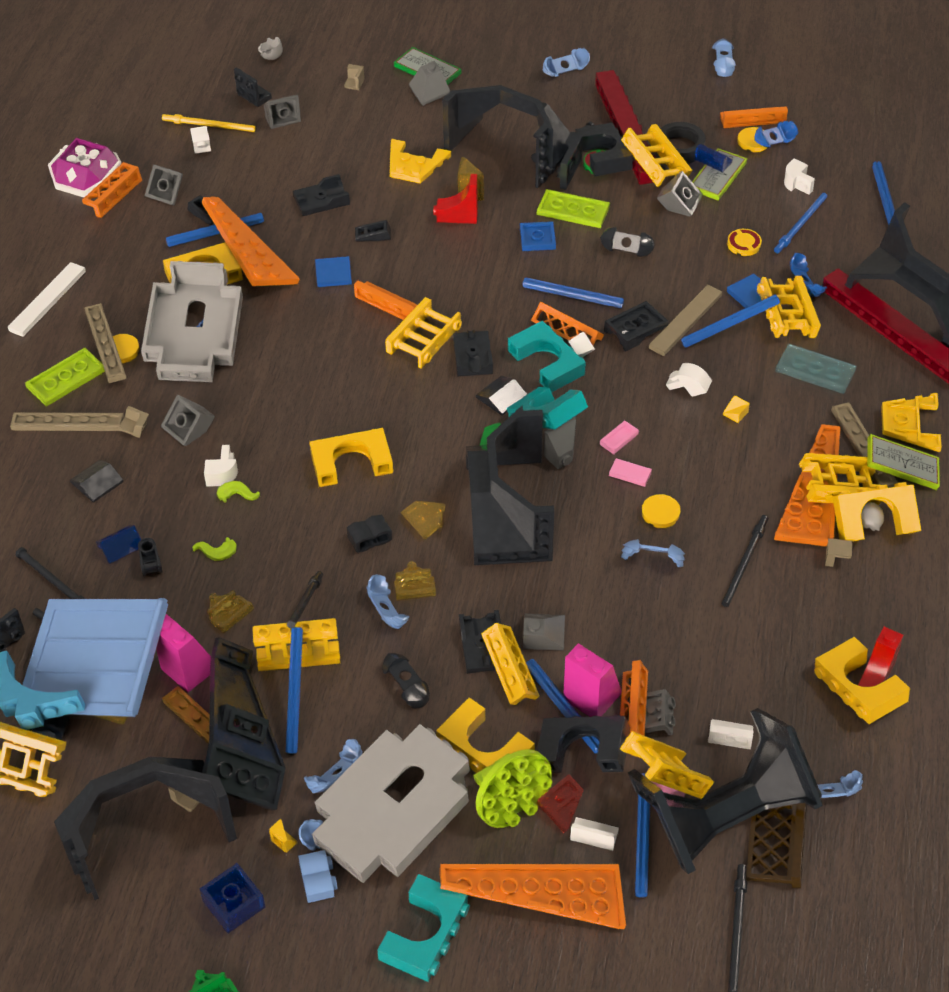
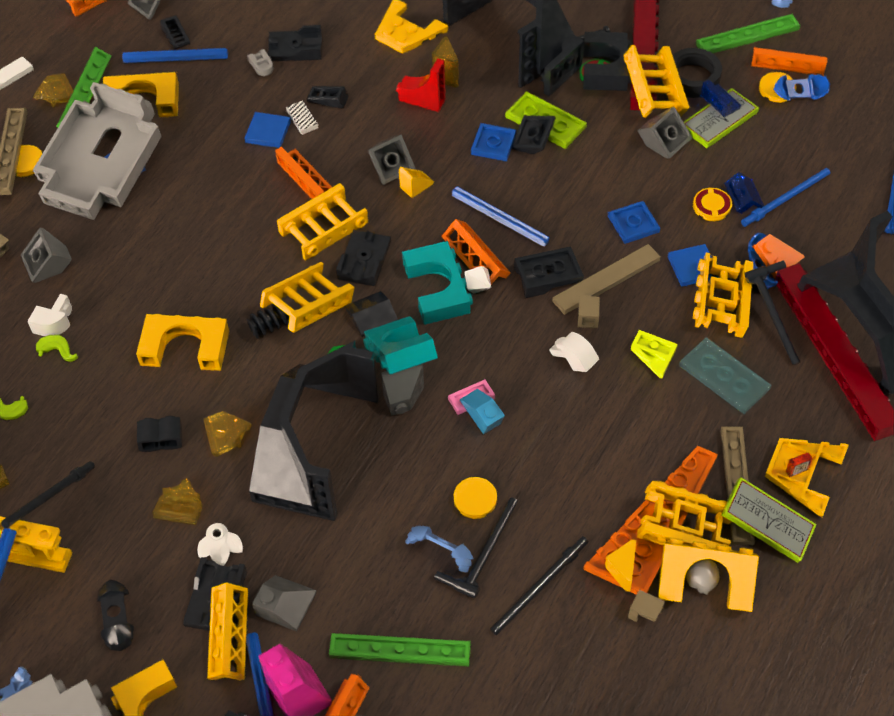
camera: 20 degrees right, 5 degrees up
(118, 283) = (54, 89): none -> clear yellow slope
(145, 273) = (91, 73): none -> bright green tile
(253, 255) = (193, 90): orange wing -> none
(298, 218) = (261, 62): none -> light grey plate
(359, 254) = (302, 117): none -> white tile
(378, 593) = (135, 504): medium blue piece -> none
(418, 419) = (266, 320): none -> black piece
(455, 402) = (309, 311): none -> yellow fence
(459, 268) = (389, 157): none -> dark grey slope
(465, 605) = (219, 547): none -> white plate
(485, 283) = (413, 181): none -> yellow slope
(571, 220) = (533, 133): none -> black slope
(630, 472) = (463, 442): bright pink tile -> none
(636, 442) = (482, 410): none -> dark azure slope
(642, 244) = (595, 180): black piece -> none
(656, 638) = (400, 649): none -> bright green tile
(685, 347) = (588, 311): none -> dark tan panel
(686, 271) = (633, 222): none -> blue tile
(687, 576) = (469, 585): none -> black bar
(711, 102) = (749, 34): none -> bright green tile
(730, 320) = (654, 293): blue axle -> none
(736, 409) = (612, 400): yellow slope -> none
(752, 364) = (654, 351): none -> neon yellow wing
(764, 227) = (743, 192): none -> clear blue panel
(796, 177) = (804, 142): white brick -> none
(807, 524) = (621, 564): none -> yellow slope
(812, 285) = (758, 276): none -> black bar
(815, 266) = (773, 250): none -> orange wing
(908, 415) = (798, 464): none -> clear red tile

